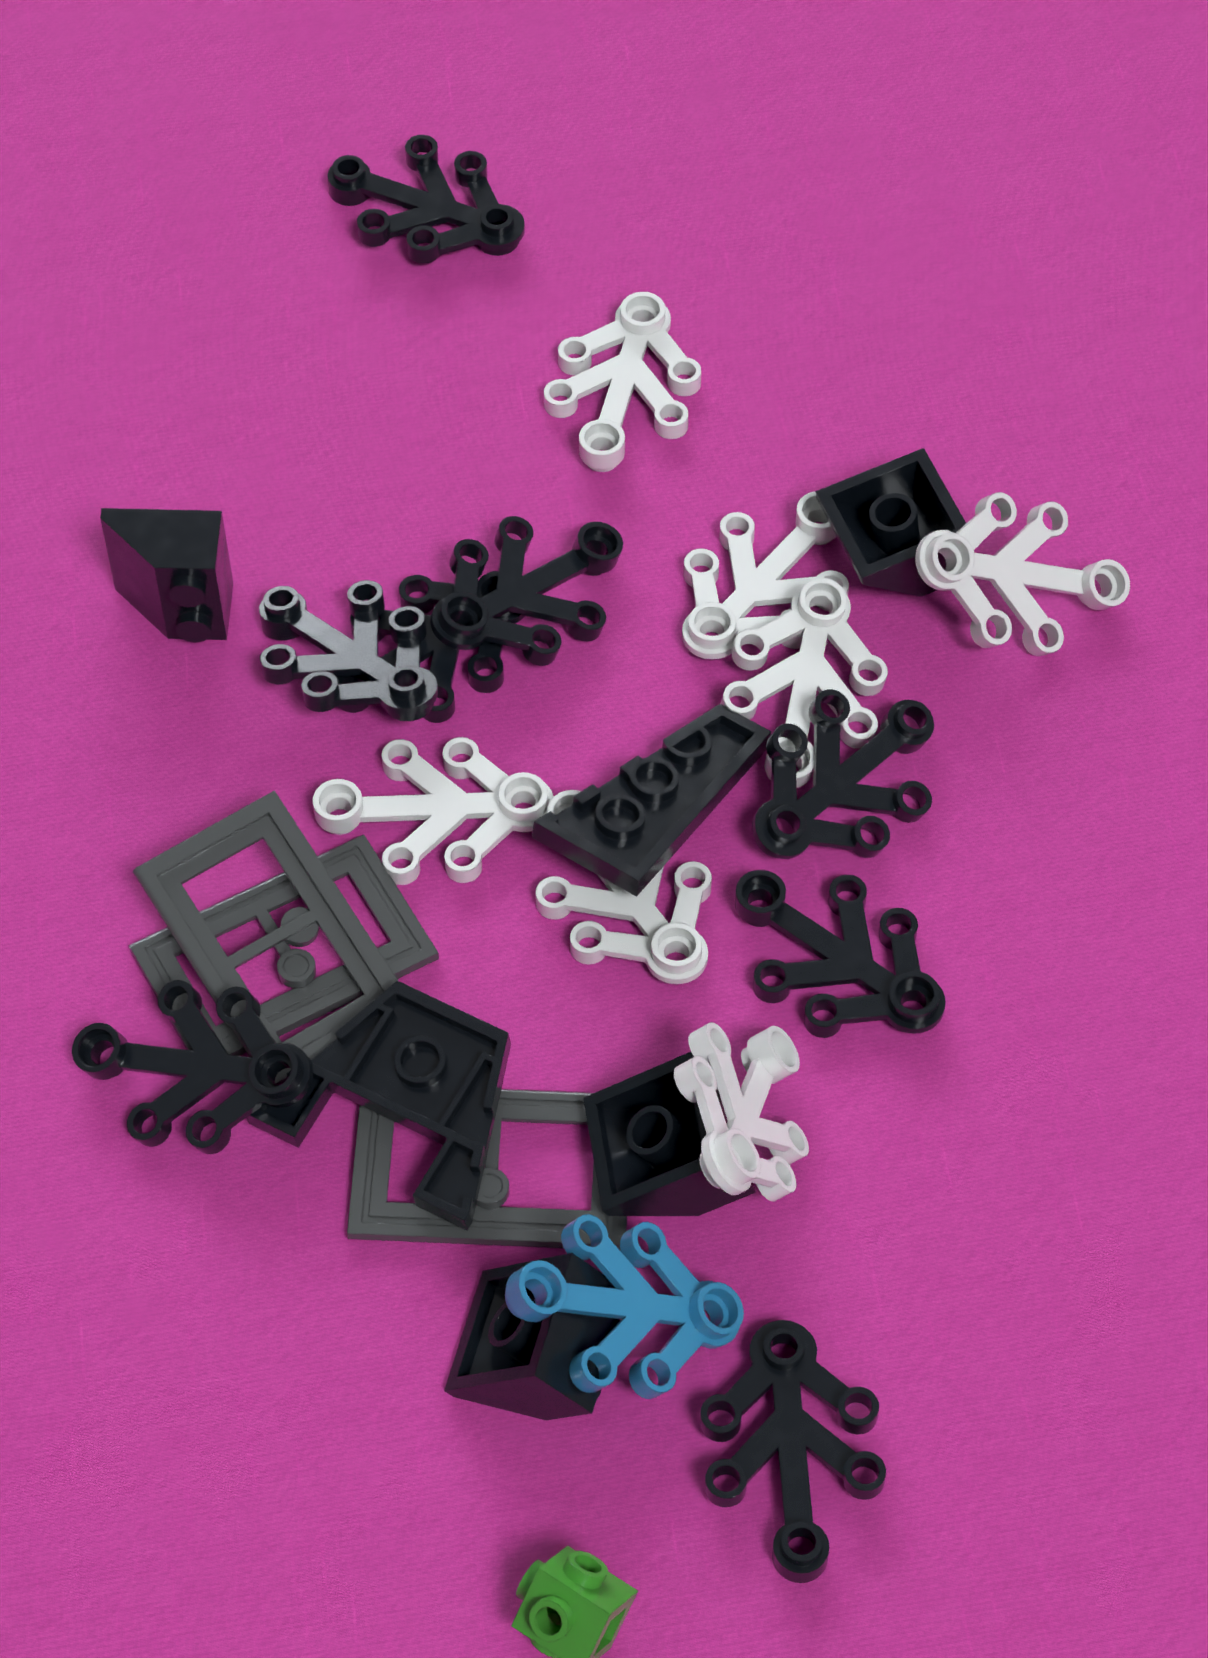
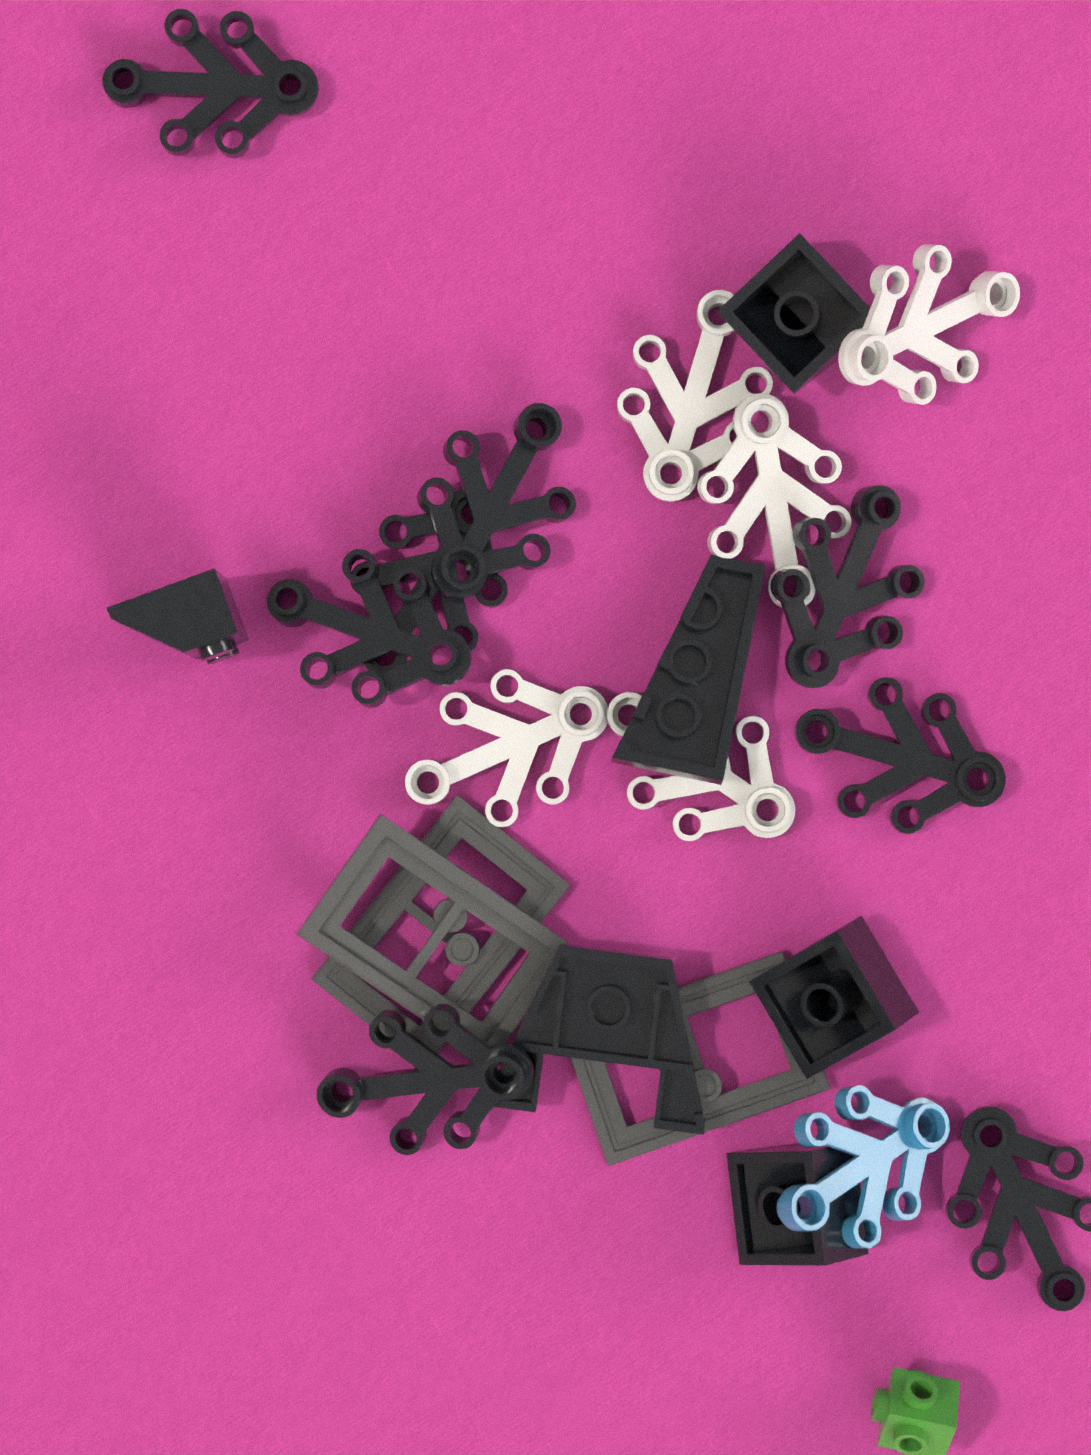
camera: 20 degrees left, 30 degrees up
(638, 323) = (481, 214): white plant -> none
(728, 1149) = (908, 1030): white plant -> none

